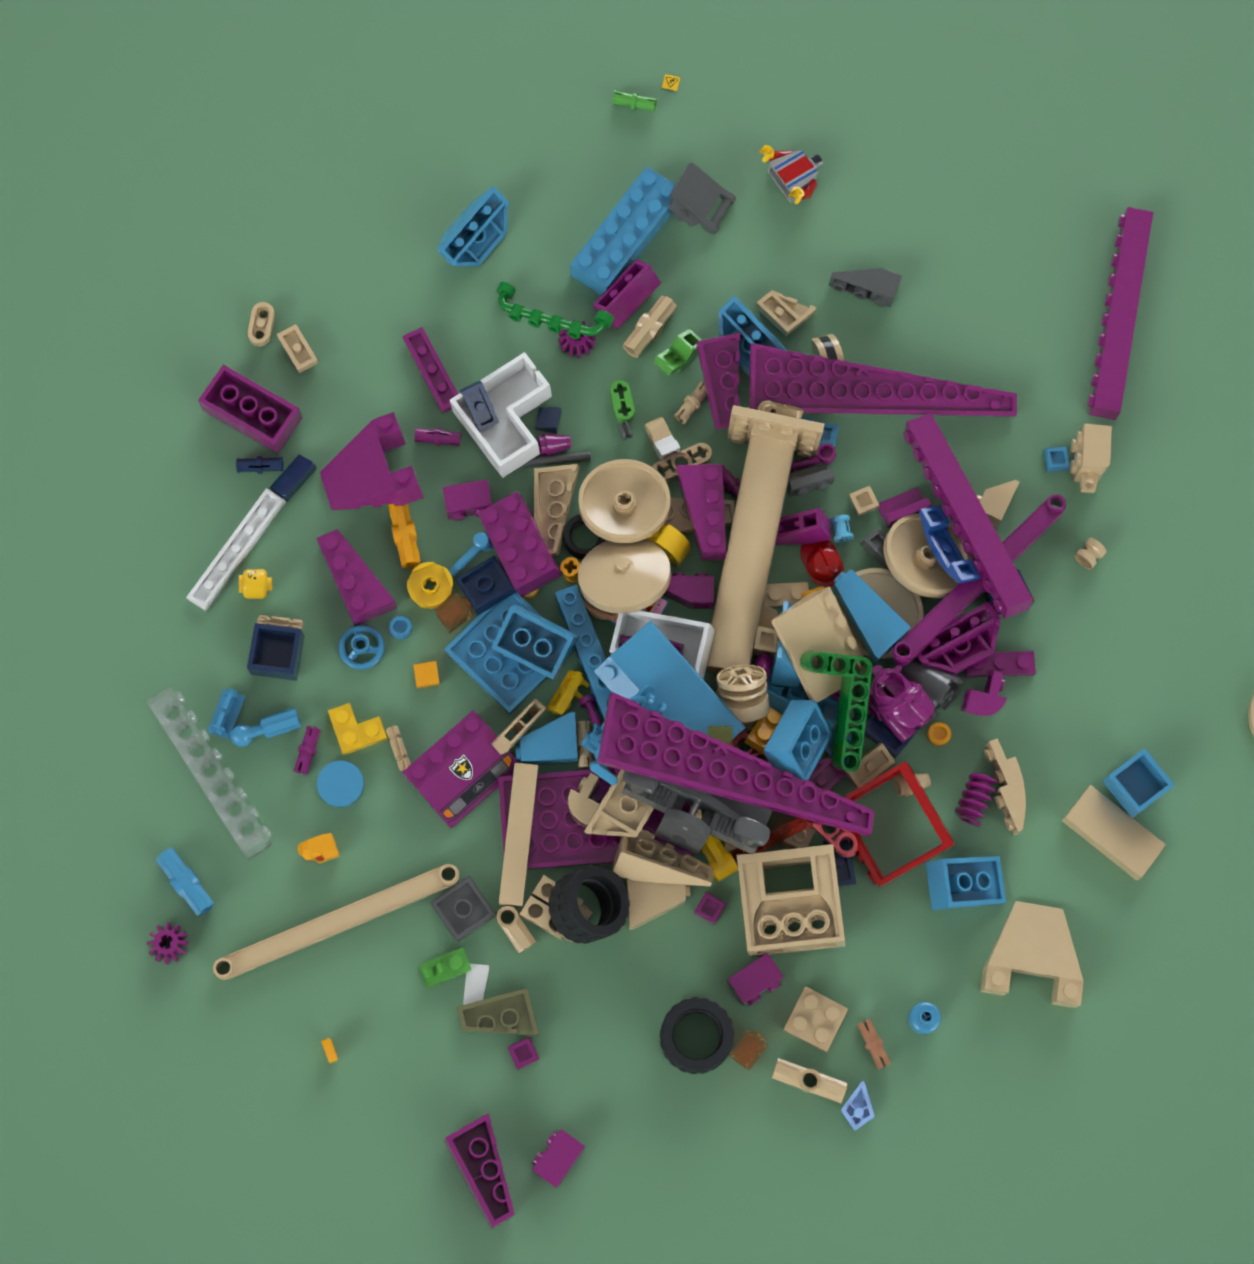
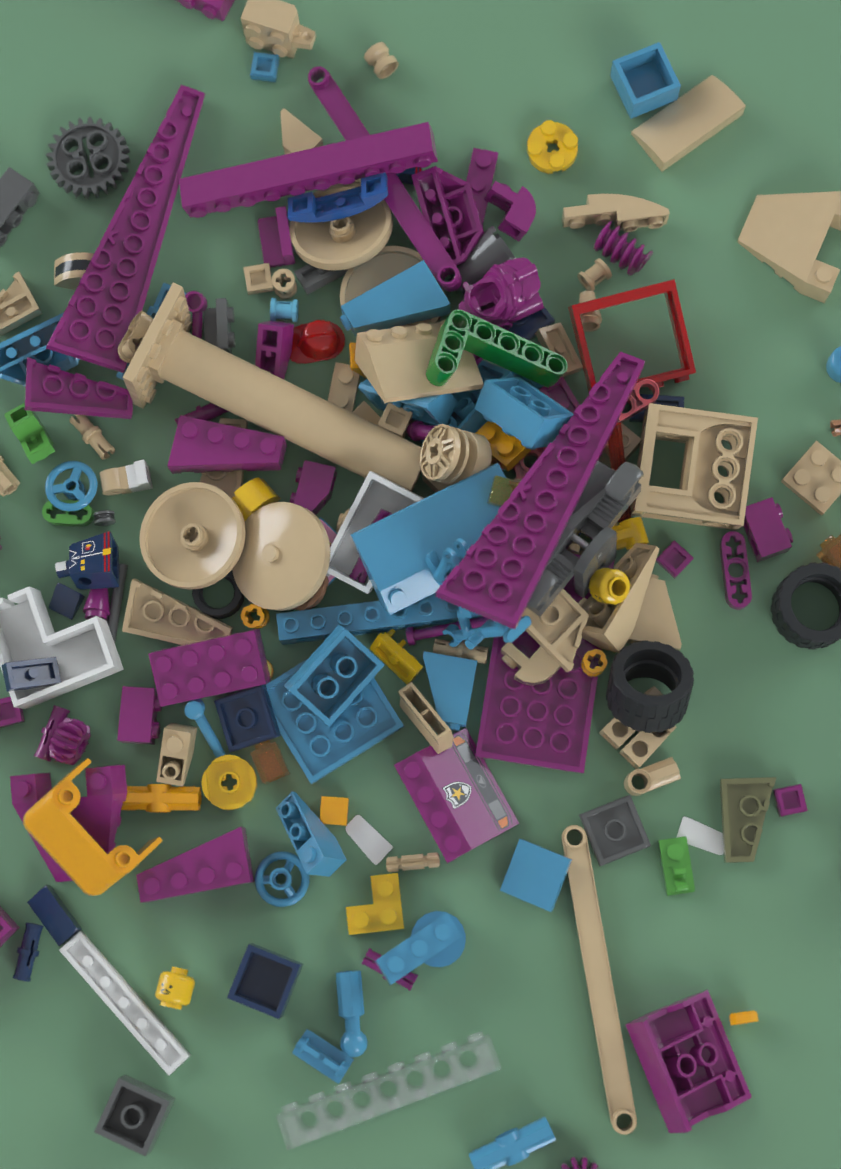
camera: 65 degrees left, 5 degrees up
(149, 578) = (134, 1115): none -> dark grey brick
(280, 621) = (230, 968): tan axle -> none
(284, 1012) = (688, 1061): none -> magenta piece
(319, 848) = (510, 979): light orange rock -> none
(326, 765) = (418, 948): none -> dark azure brick
(347, 471) = (72, 846): none -> light orange windscreen
(399, 659) = (310, 837): none -> dark azure slope
(400, 627) = (270, 828): dark azure tile -> none
(409, 708) = (368, 839): none -> white sticker
(410, 850) = (536, 875): none -> dark azure tile
(433, 451) = (69, 741): none -> magenta gear
(443, 536) = (176, 753): none -> tan slope
(518, 835) = (548, 747): tan tile -> none
(584, 430) = (92, 563): none -> dark blue torso
(603, 860) = (597, 670): none -> light orange bush
(640, 407) = (79, 491): none -> dark azure piece
(665, 848) = (609, 586): none -> yellow head
(693, 450) = (150, 459): tan beam -> none
(698, 974) = (726, 551): none -> magenta beam
(861, 528) = (277, 282): none -> tan bush
(920, 320) = (65, 163): none -> dark grey gear
(939, 734) = (544, 268): light orange tile -> none
(946, 781) = (594, 275): none -> tan bush
(965, 882) = (709, 285): dark azure slope -> none
(1043, 725) = (551, 133): none -> yellow plate

